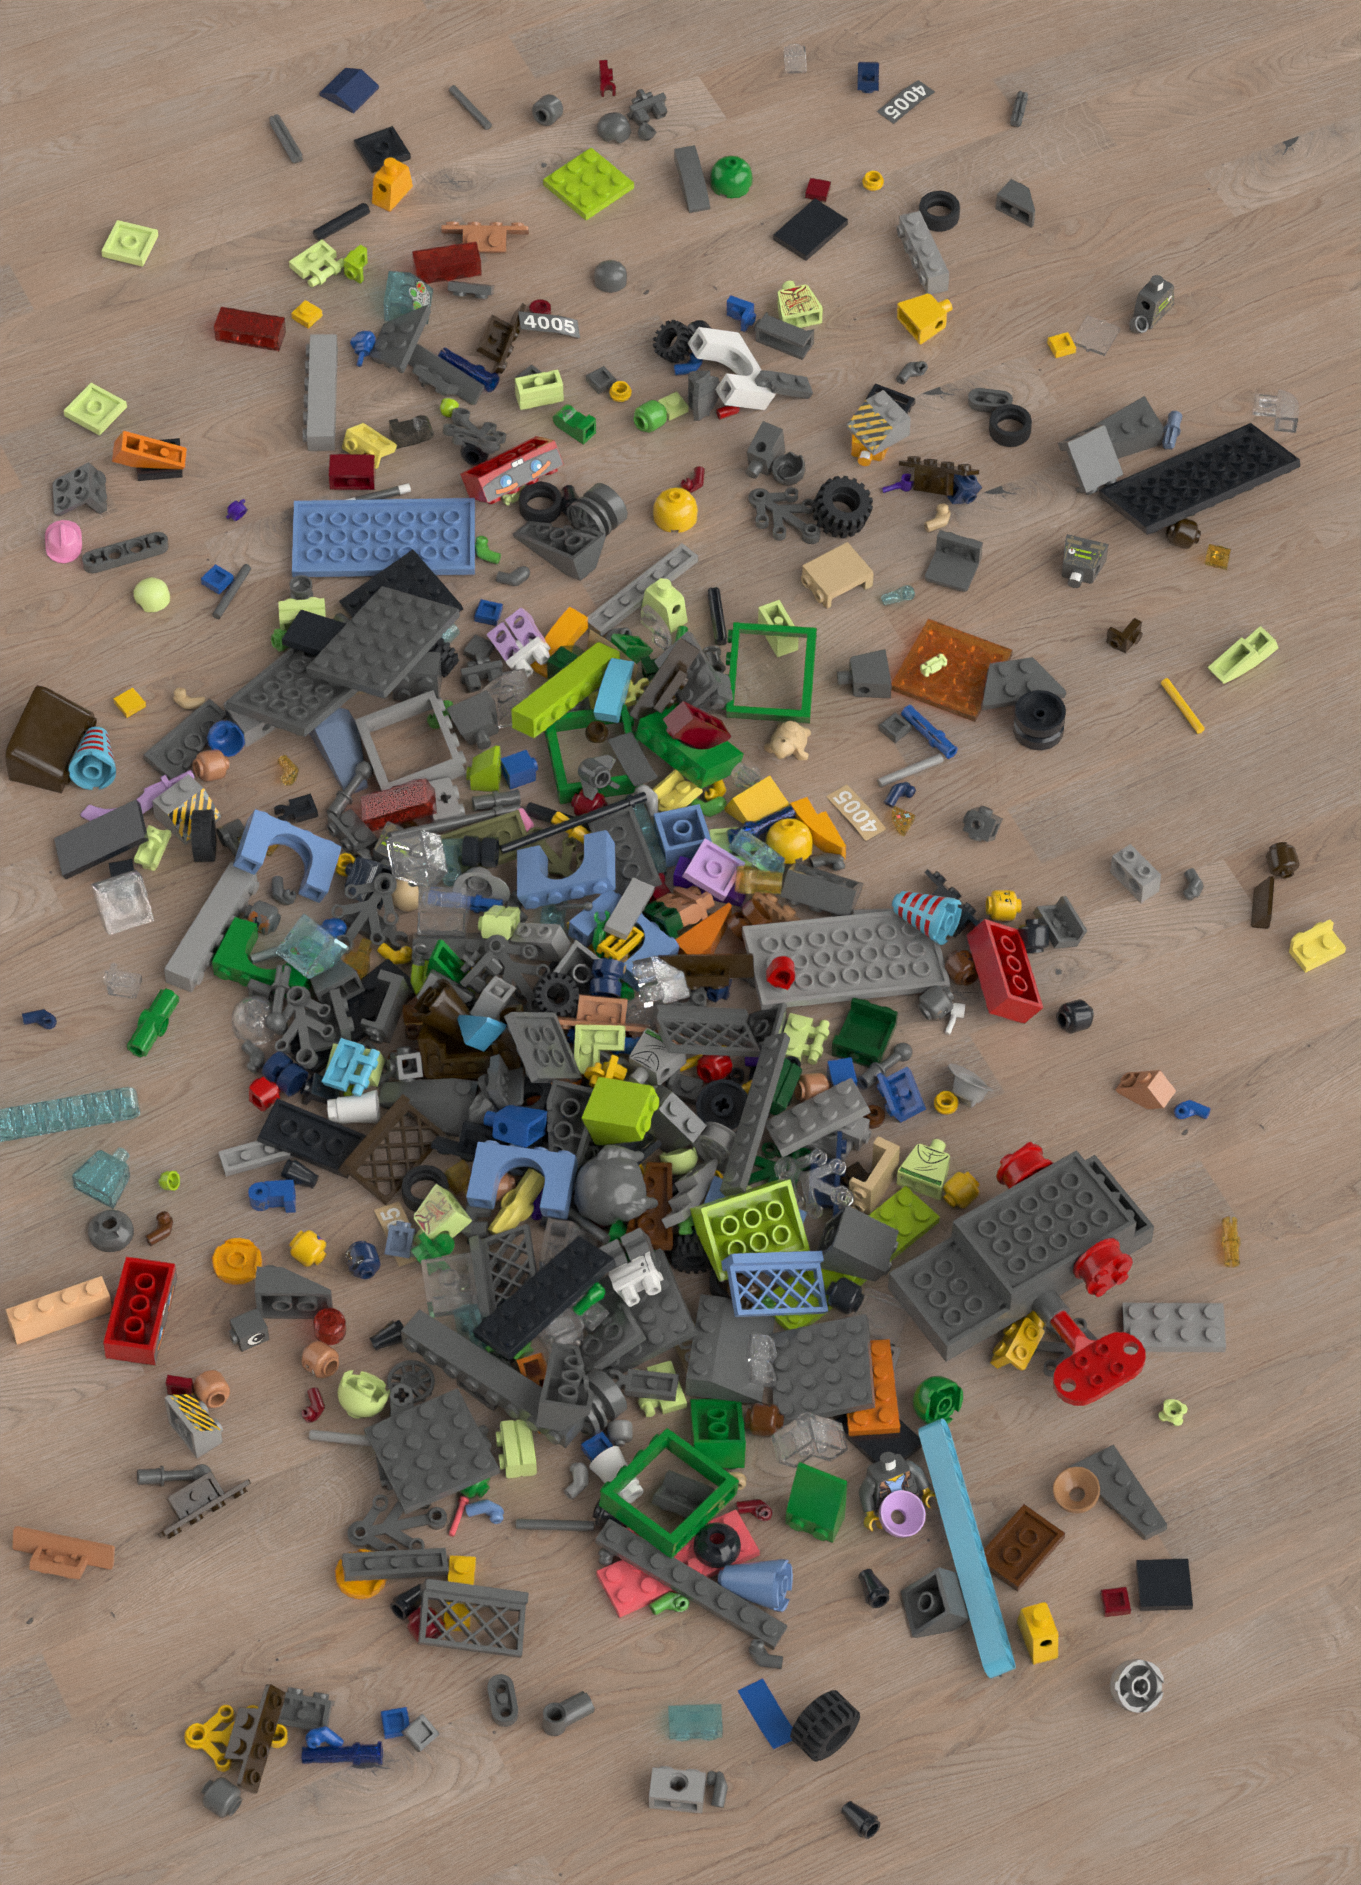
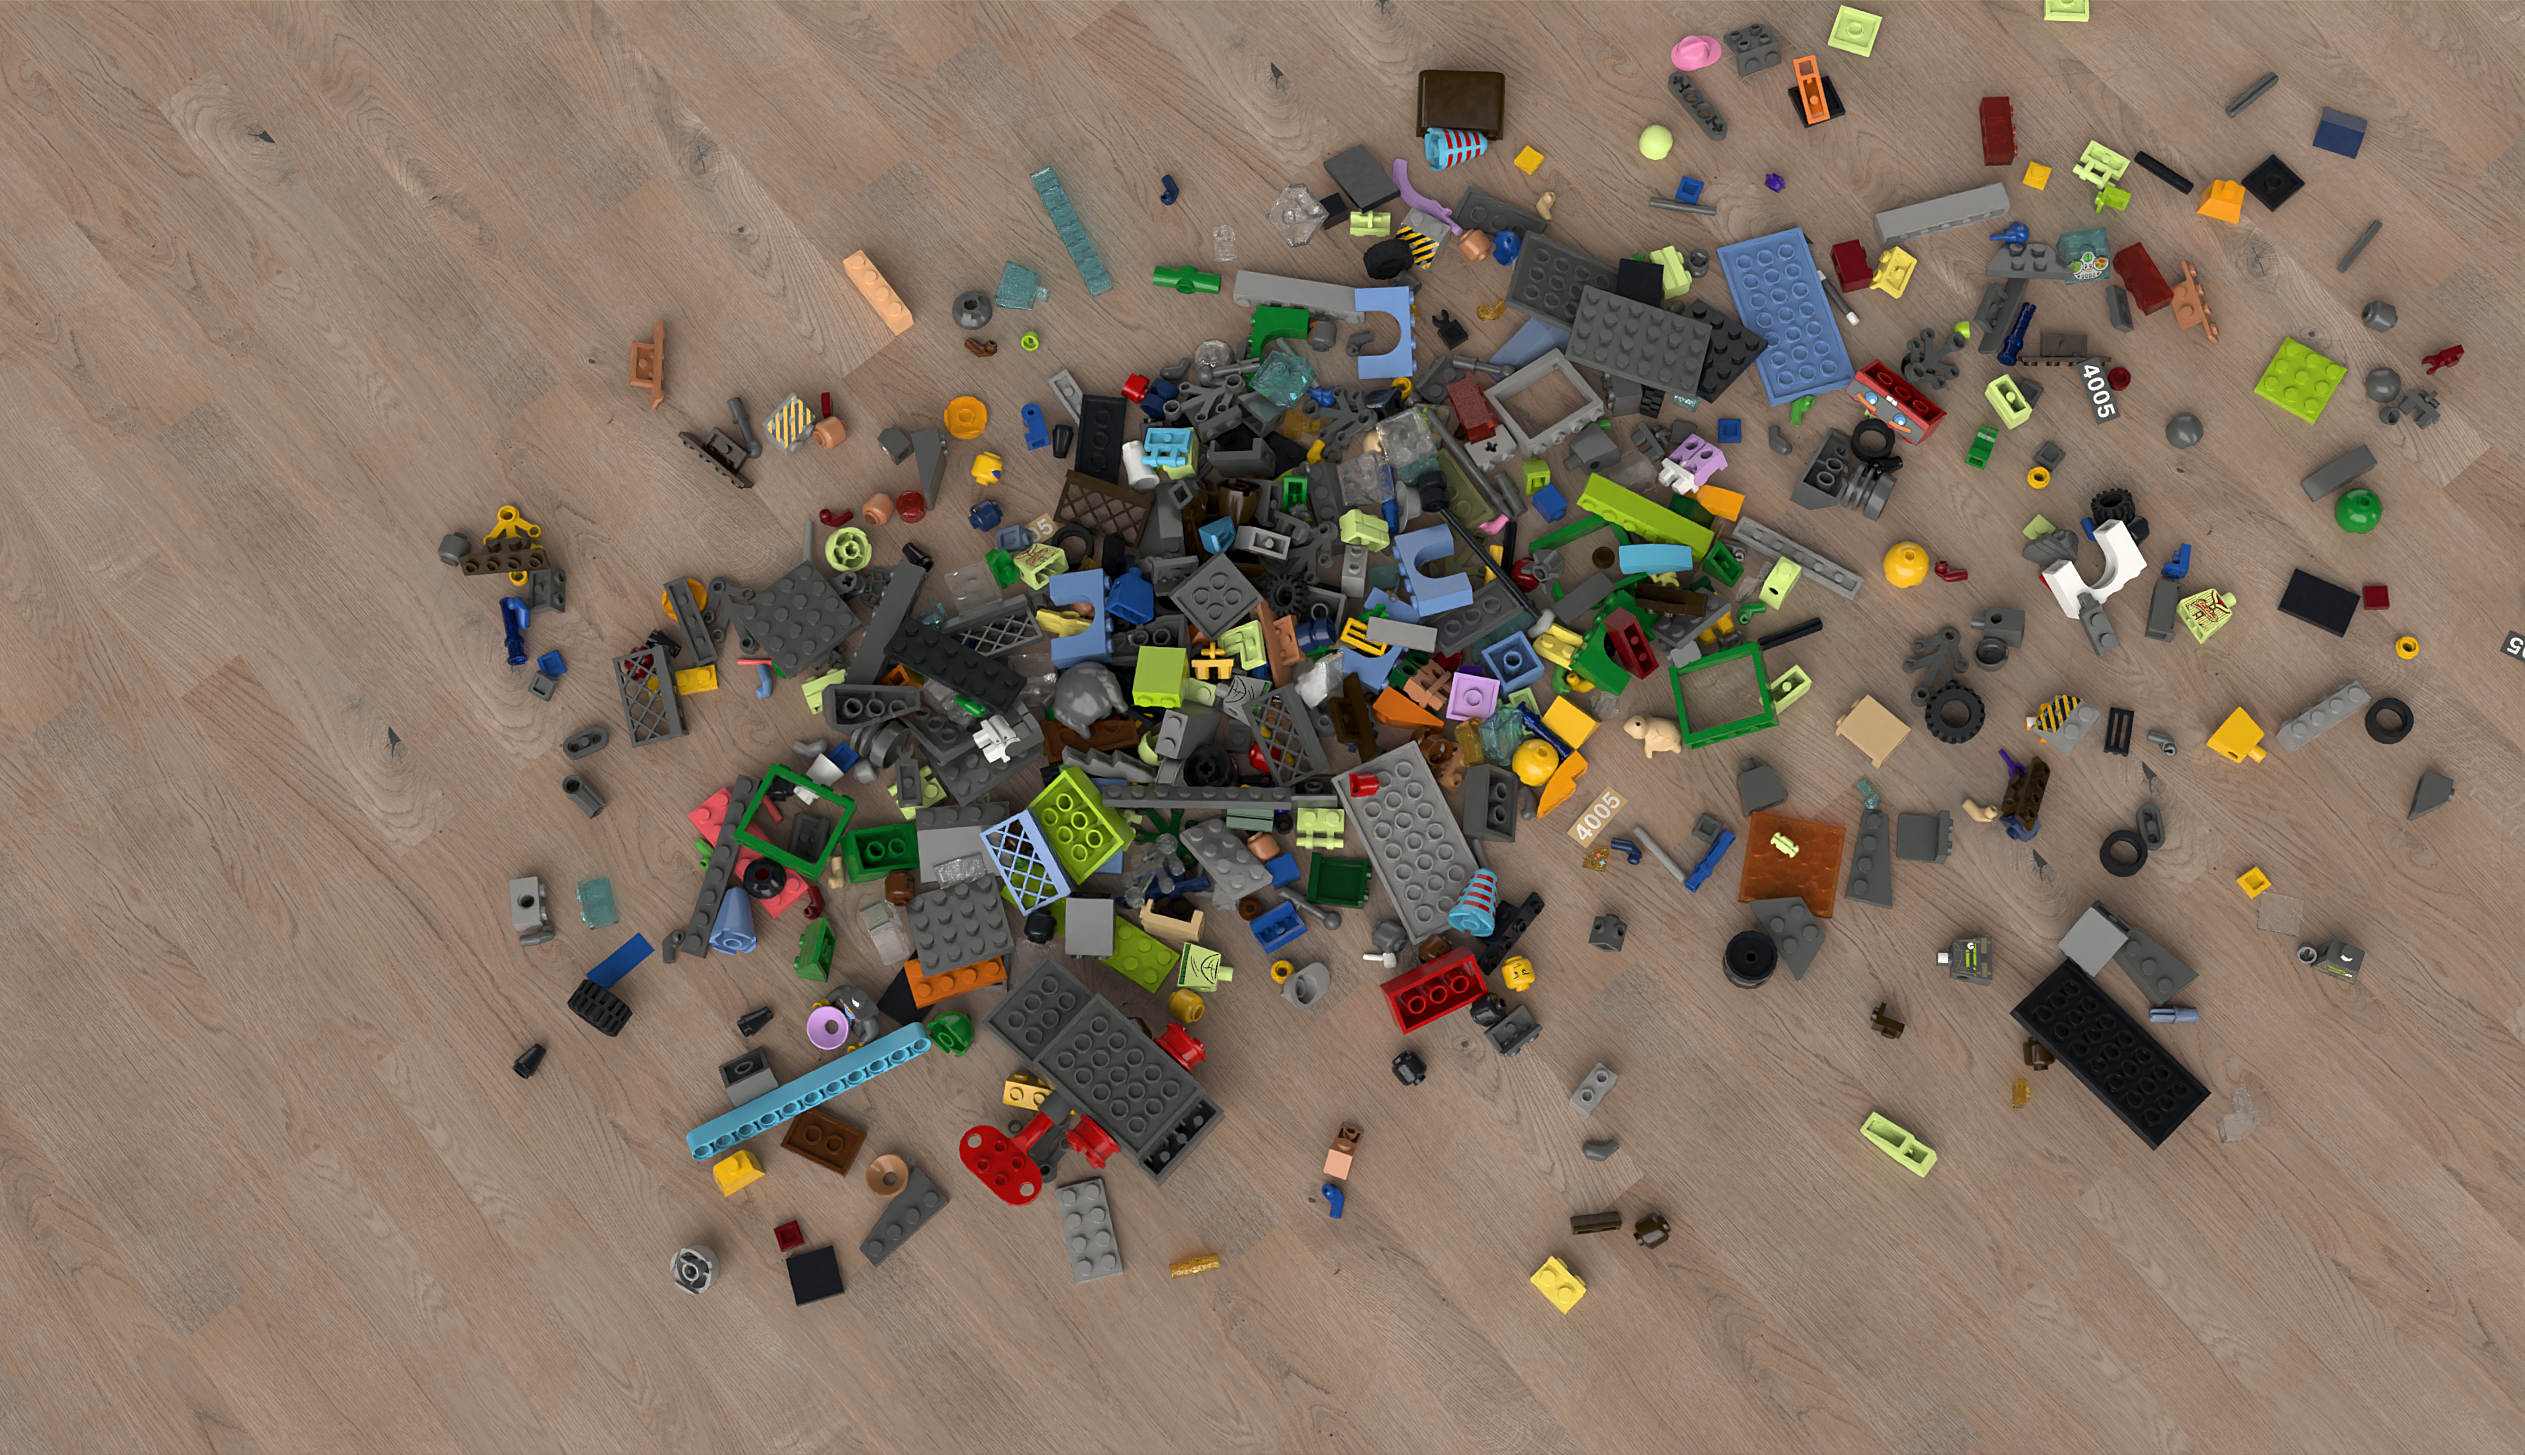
camera: 80 degrees right, 15 degrees up
(140, 1311) = (889, 354): red brick -> none
(410, 431) = (1920, 303): clear smoke leg -> none
(567, 1525) = (764, 739): dark grey bar -> none
(650, 416) = (2013, 511): bright green head -> none
(966, 612) = (1870, 868): none -> dark grey wing
(1176, 1406) = (992, 1242): yellowish green plate -> none
(1182, 705) = (1820, 1097): yellow bar -> none

